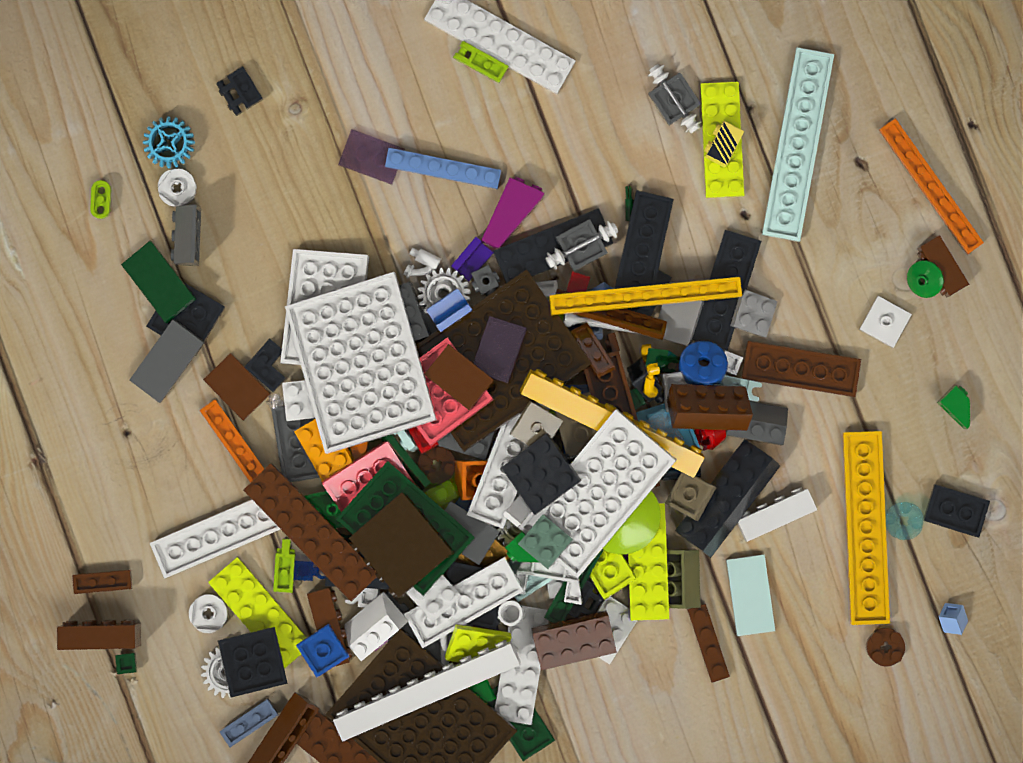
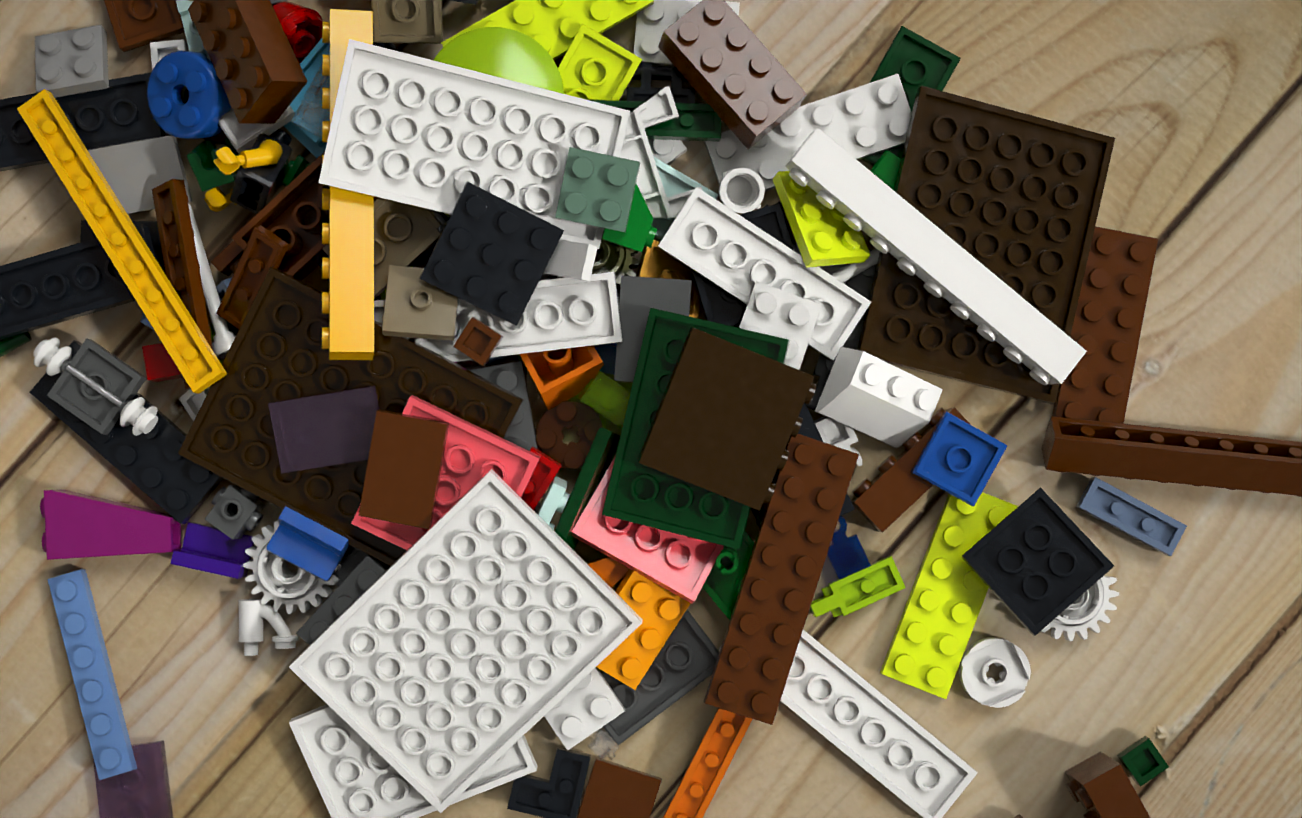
camera: 110 degrees left, 0 degrees up
(503, 445) = (478, 341): none -> reddish brown plate

